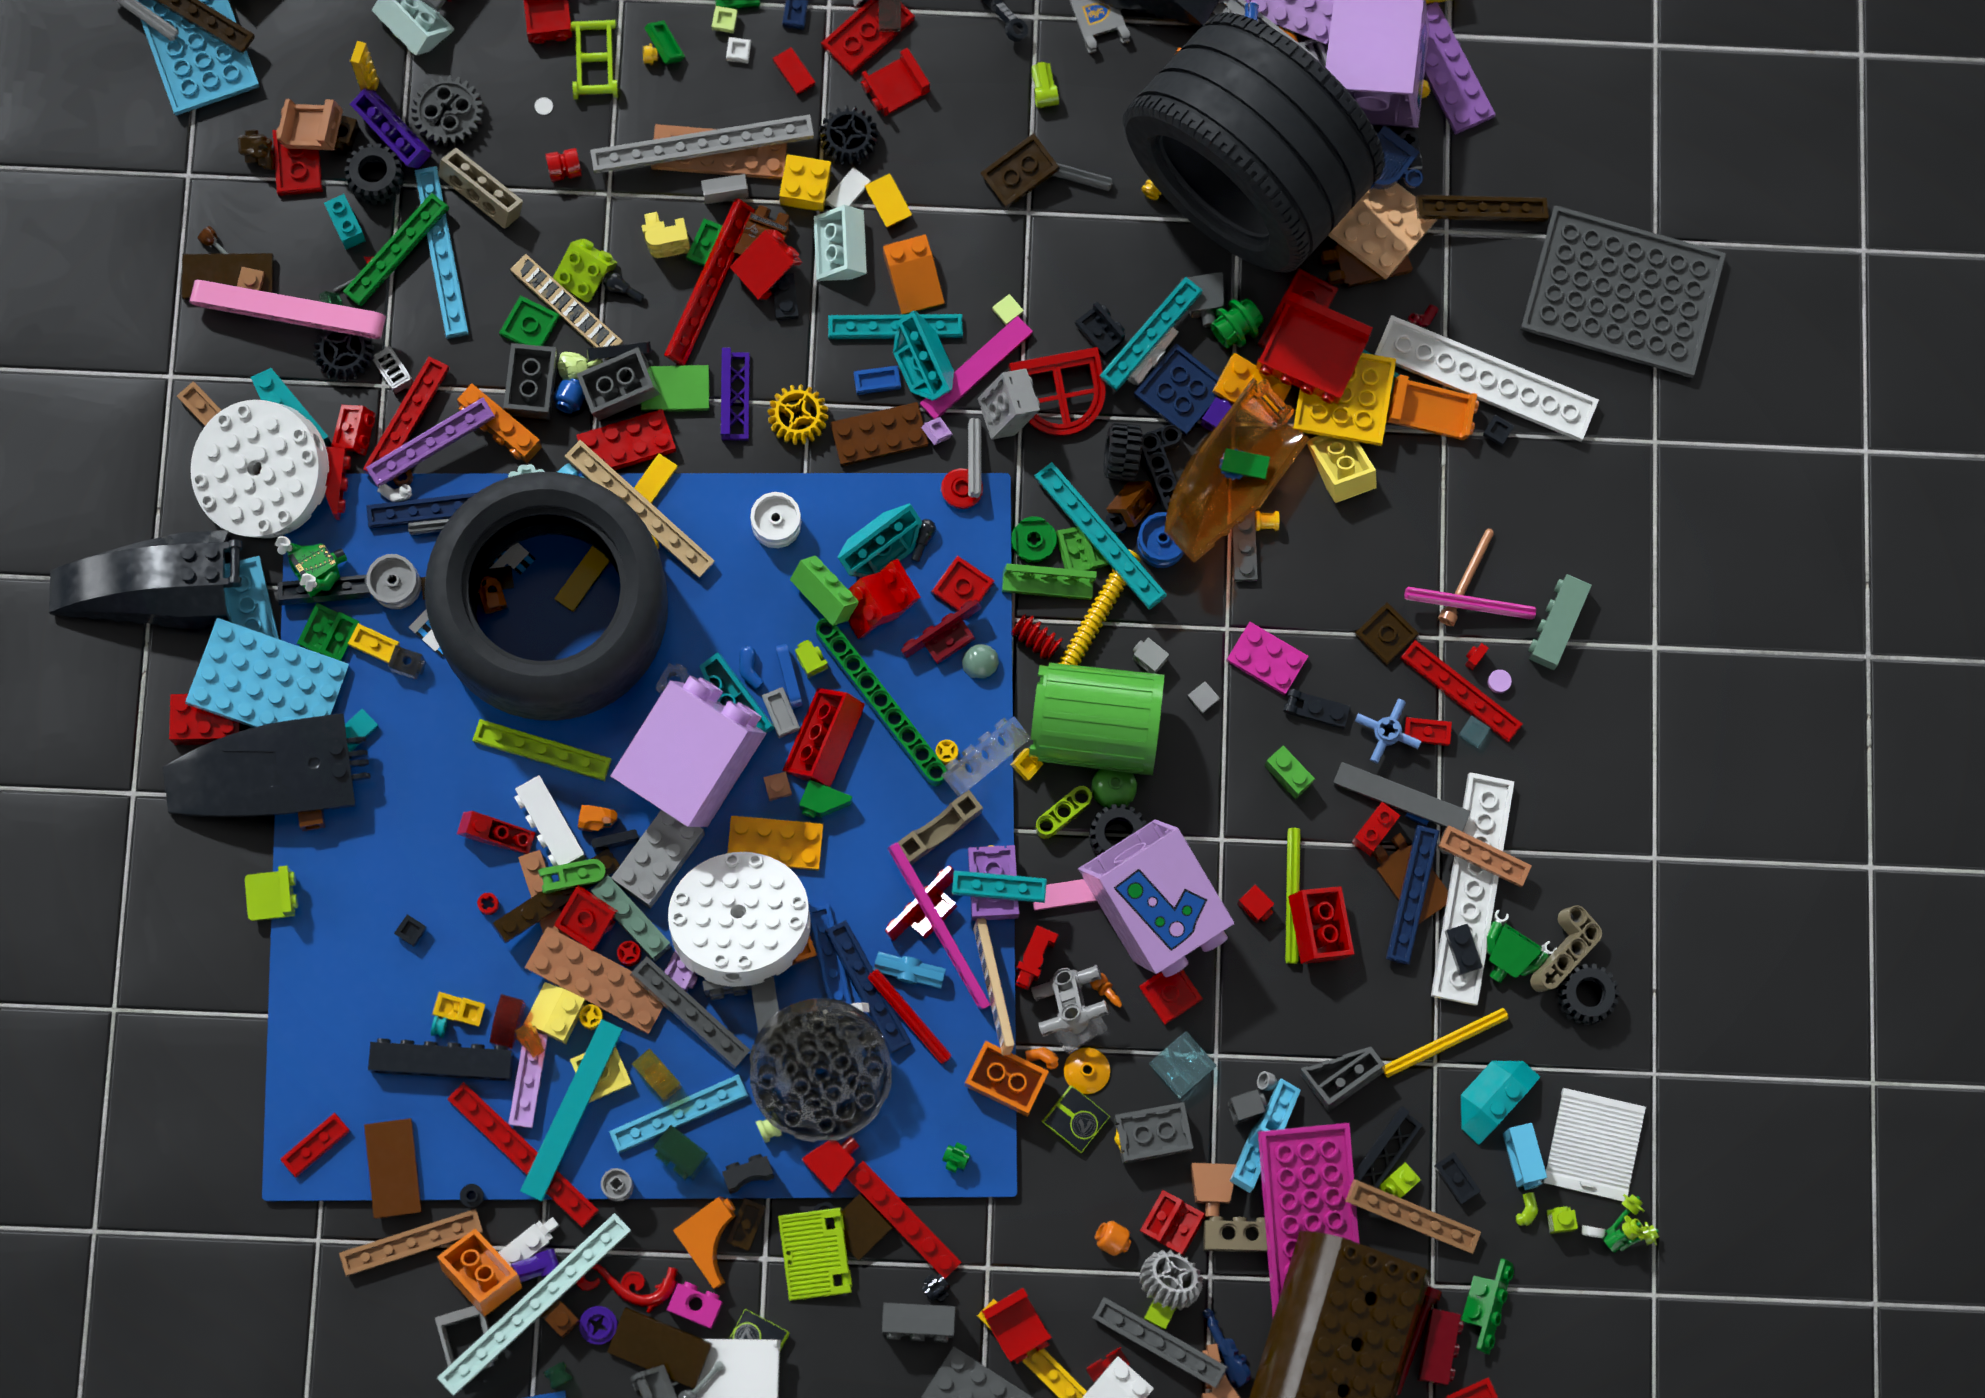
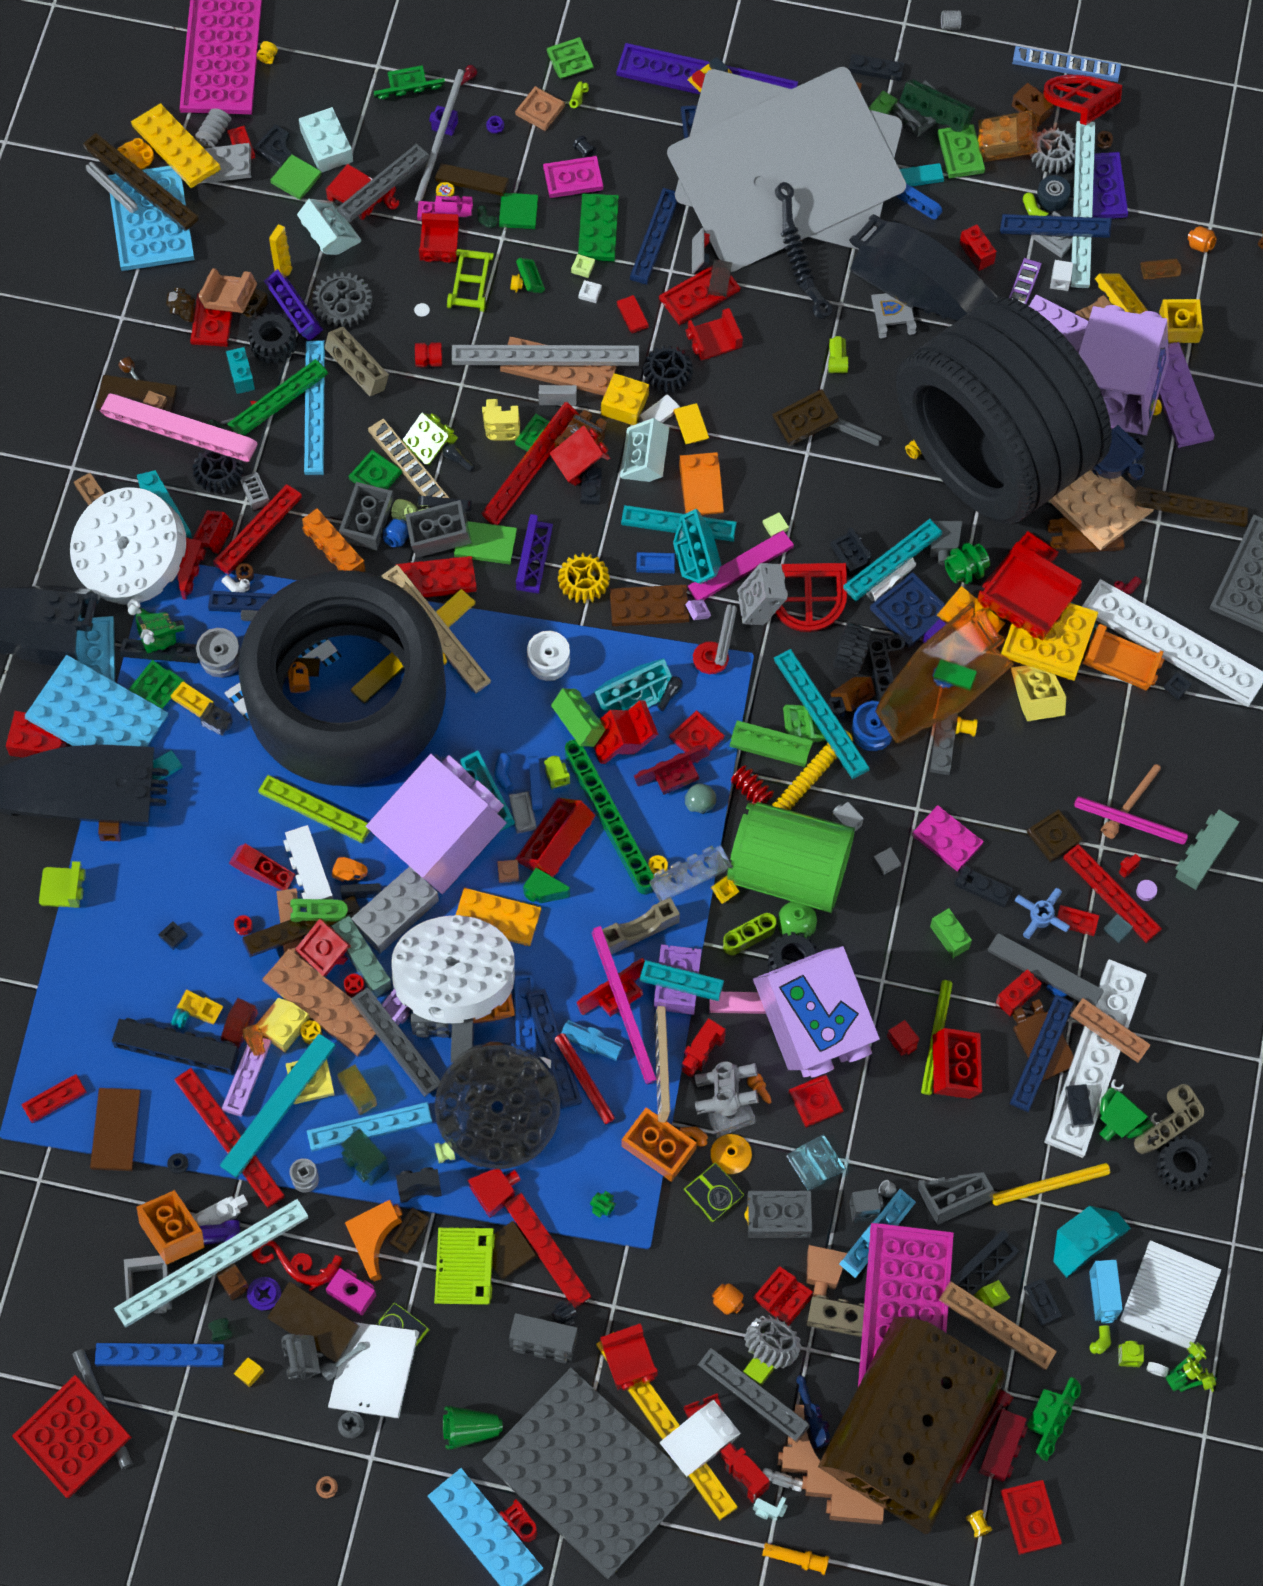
camera: 15 degrees right, 10 degrees down
(410, 1242) = (115, 1194): medium nougat plate -> none
(430, 442) = (273, 548): medium lavender tile -> none
(1025, 549) = (758, 700): green plate -> none

